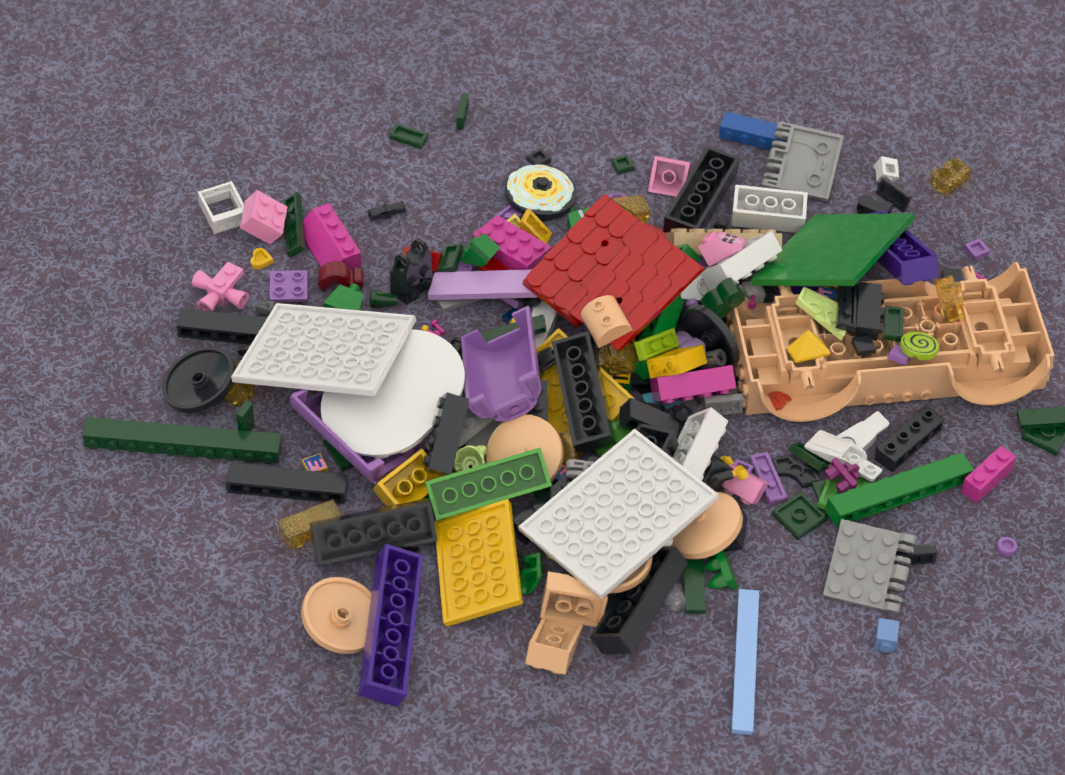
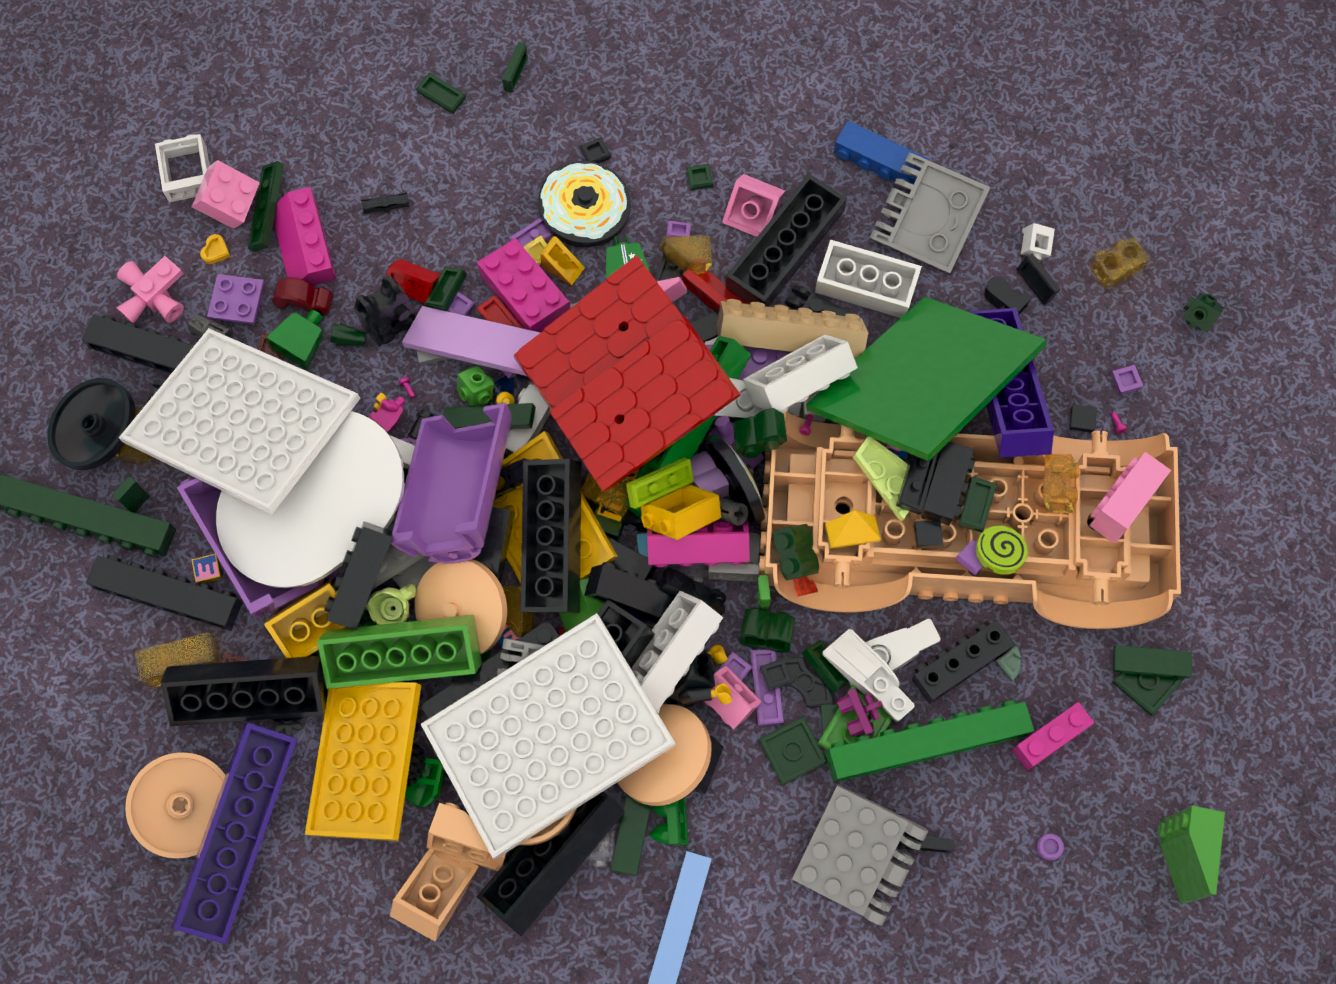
camera: 15 degrees right, 20 degrees up
(479, 251) = (479, 290): green slope -> none
(492, 315) = (475, 386): none -> bright green brick
(605, 320) = (595, 448): light nougat brick -> none
(720, 246) = (778, 349): bright pink slope -> none
(750, 413) = (763, 592): none -> bright green tile
(759, 439) = (767, 630): none -> dark green brick
(770, 370) = (796, 552): none -> dark green brick
(773, 466) = (775, 674): none -> black tile
(886, 635) = (857, 959): medium blue brick -> none
(943, 436) = (1010, 663): none -> sand green tile
(1000, 296) = (1128, 496): none -> bright pink brick
(1024, 202) = (1202, 311): none -> dark green brick

